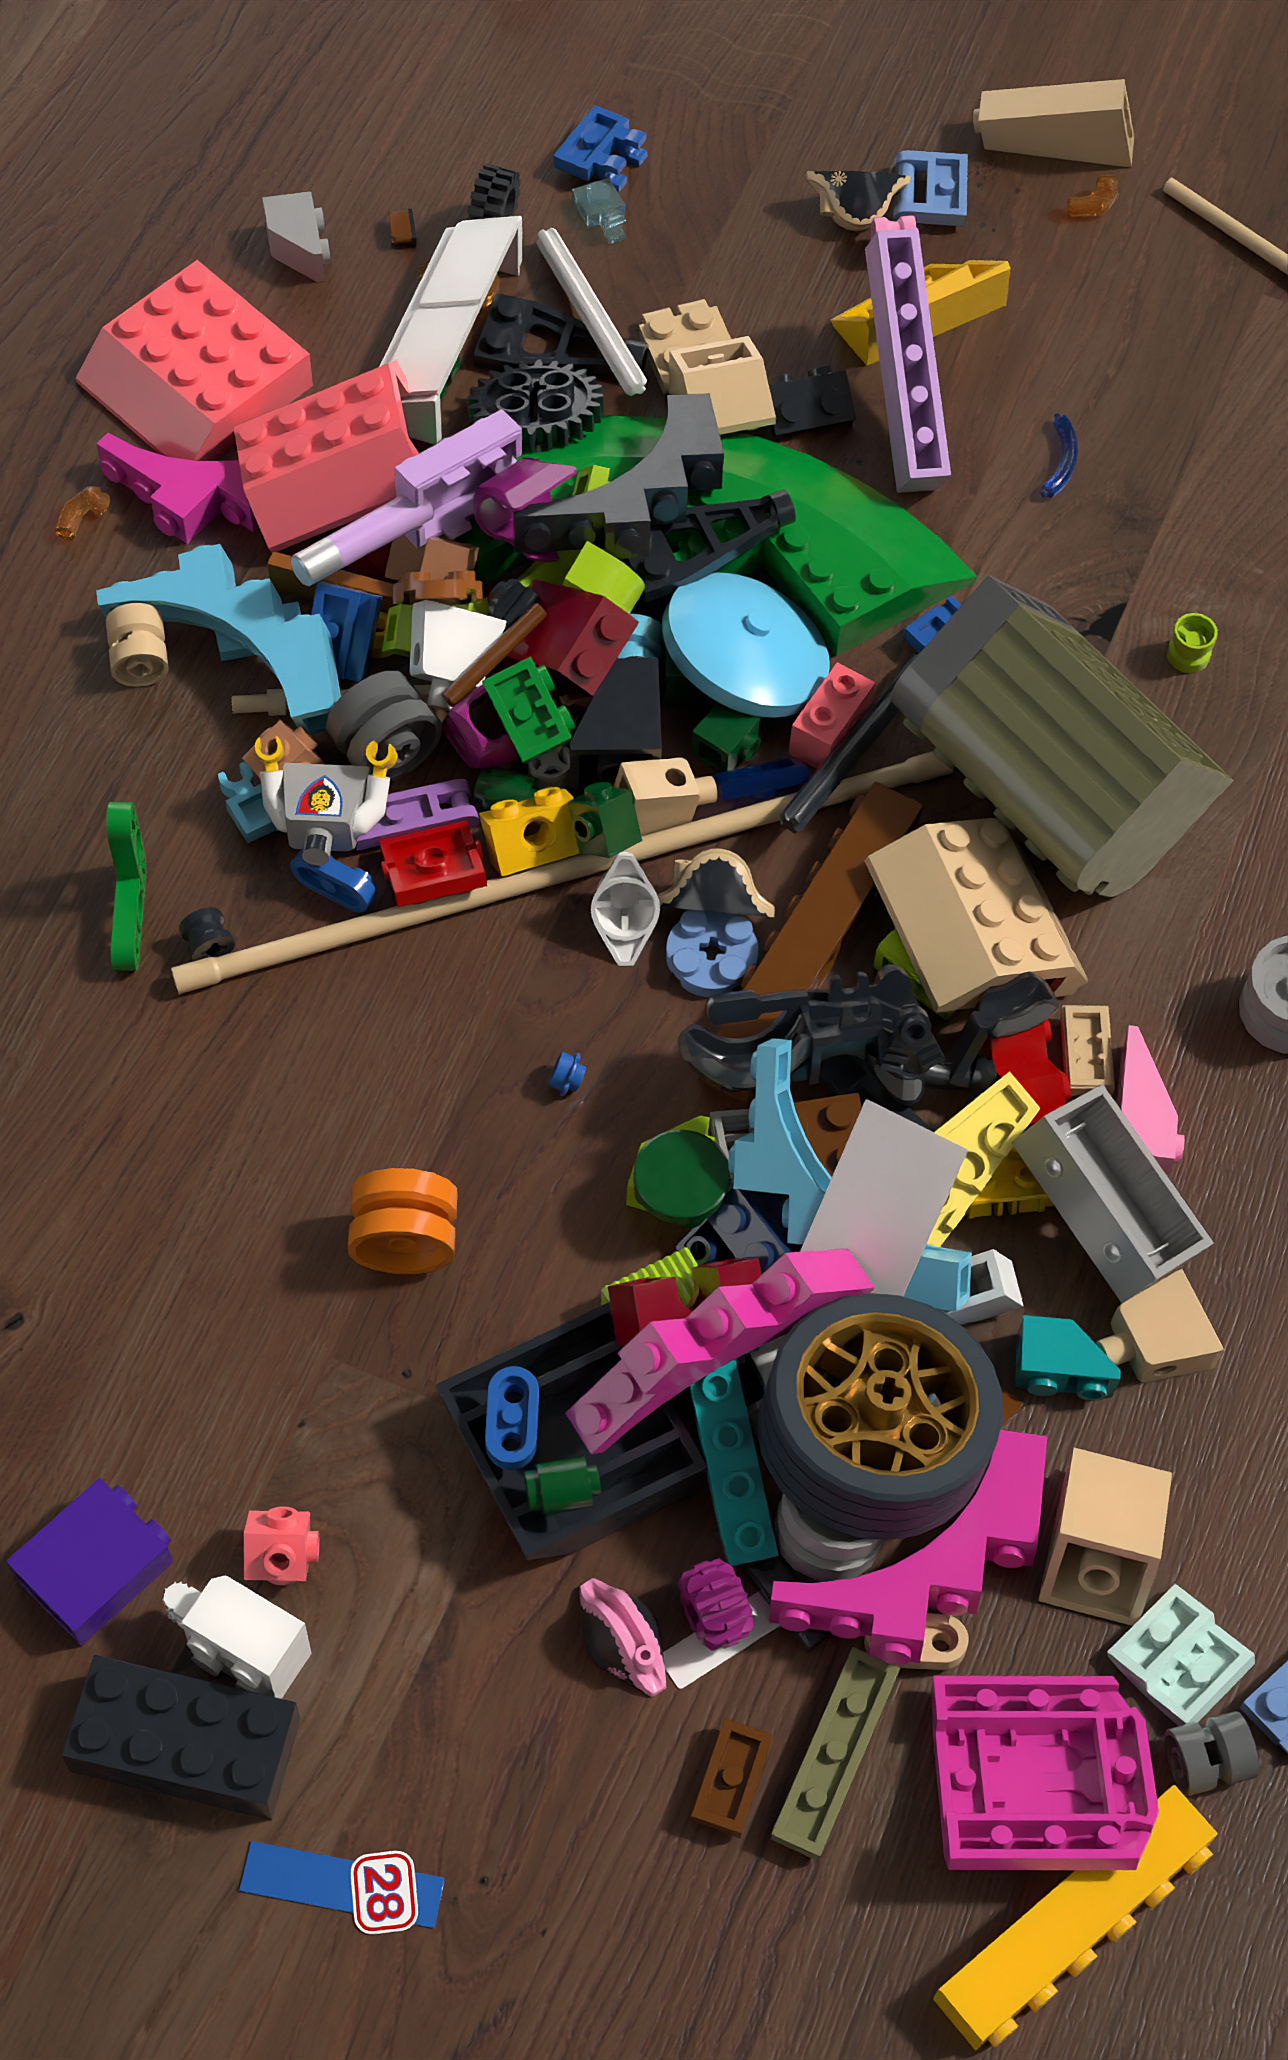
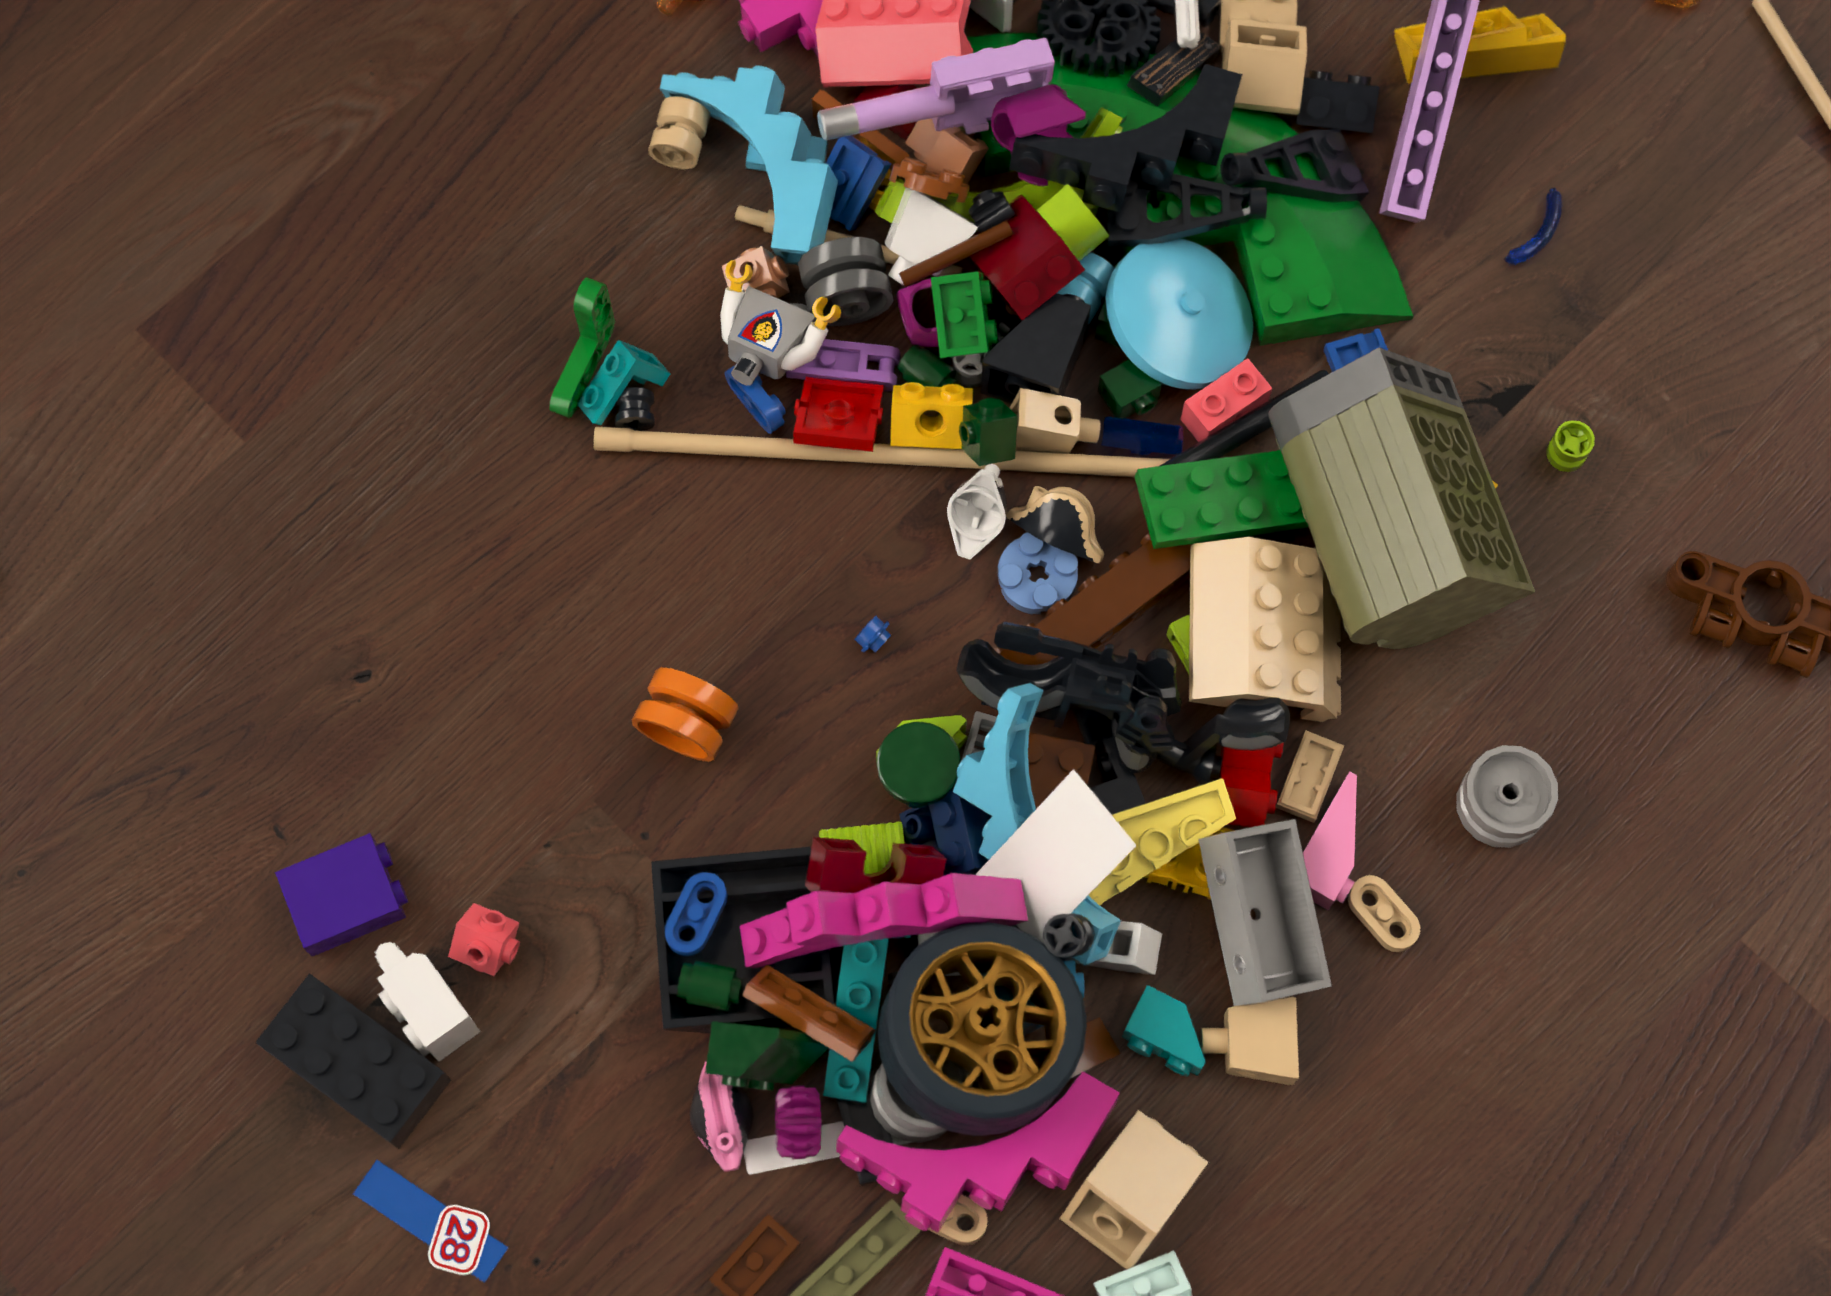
camera: 25 degrees right, 10 degrees up
(171, 911) = (614, 375): none -> teal bracket
(246, 805) = (710, 305): medium azure plate -> none
(629, 419) = (1172, 69): none -> black tile
(648, 1540) = (759, 1055): none -> dark green slope
(684, 1472) = (809, 1013): none -> dark orange tile
(842, 468) = (1330, 156): none -> black plate
(874, 804) = (1218, 499): none -> green plate
(921, 1279) = (1058, 935): none -> black wheel
(1228, 1155) = (1386, 912): none -> tan plate

